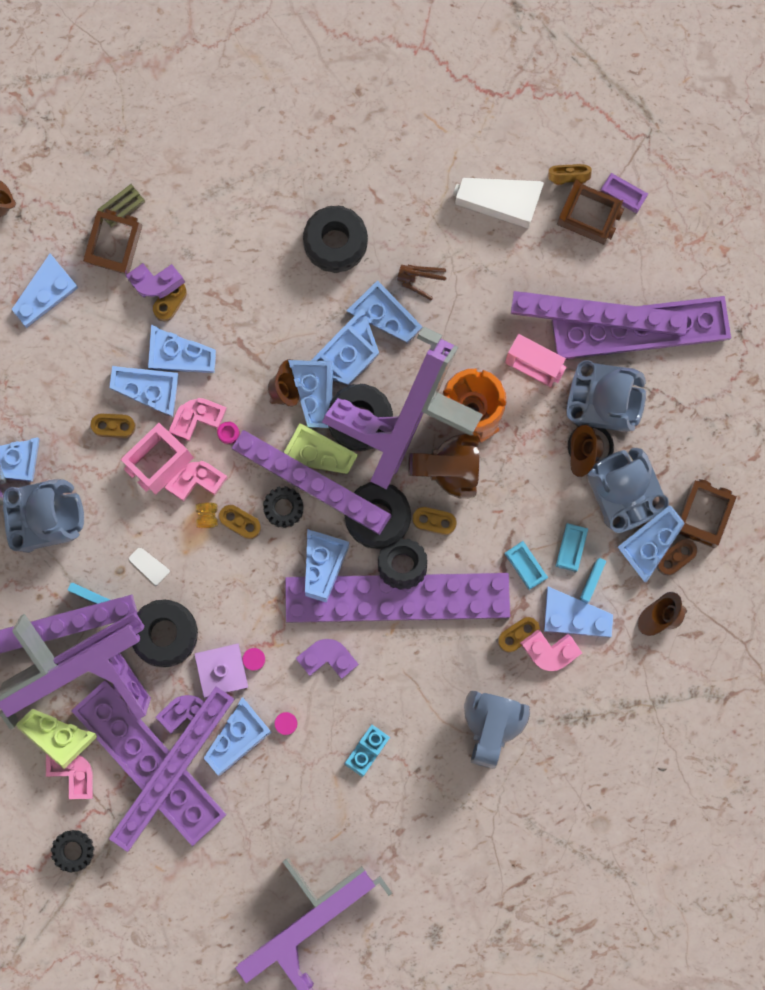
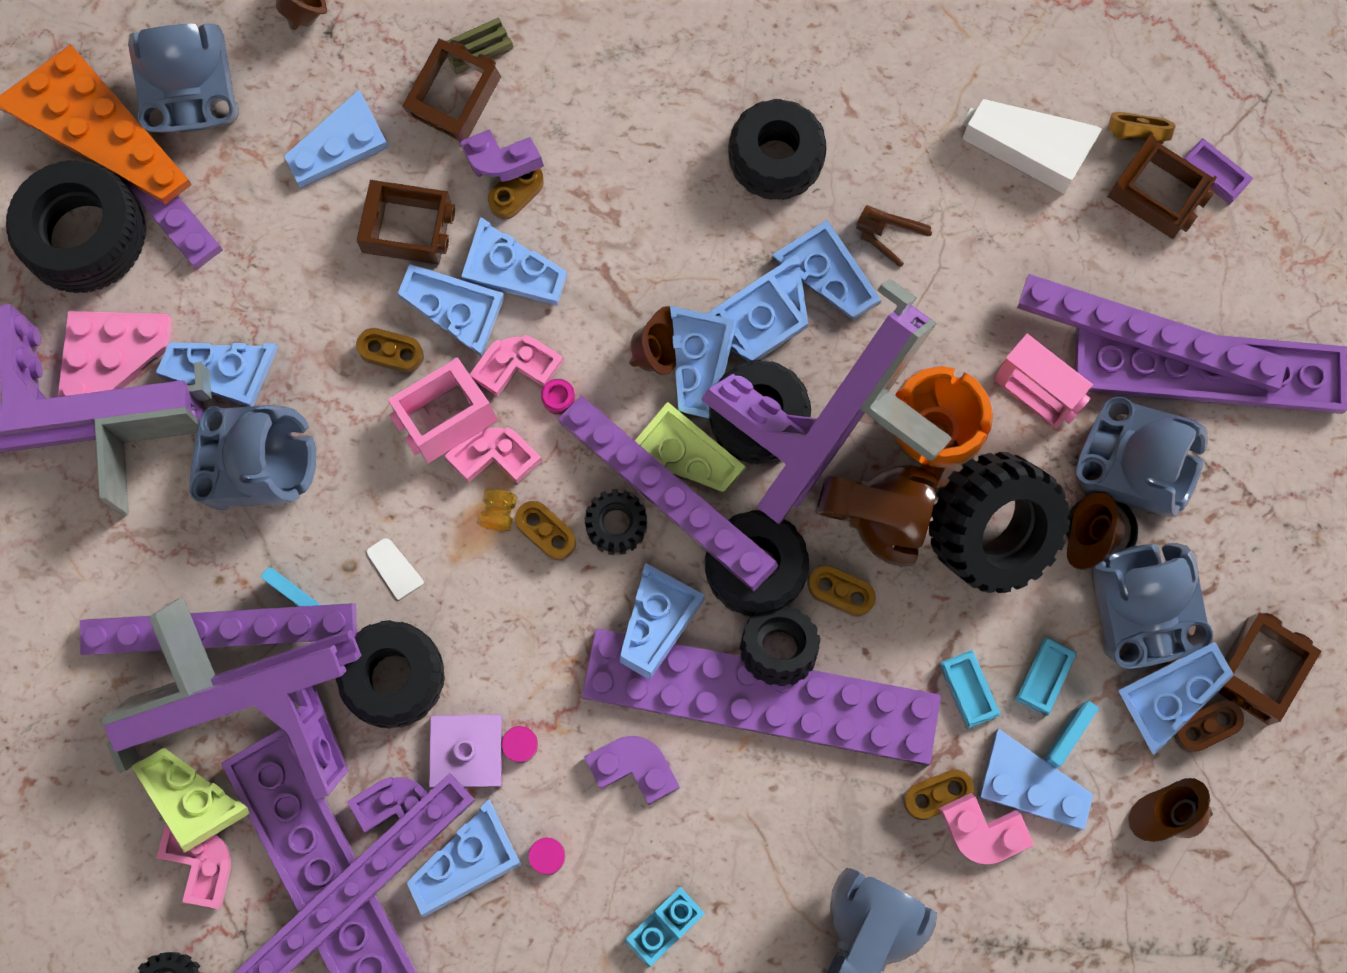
camera: 15 degrees right, 5 degrees down
(80, 324) = (385, 192): none -> reddish brown window
(504, 447) = (1025, 544): none -> black tyre

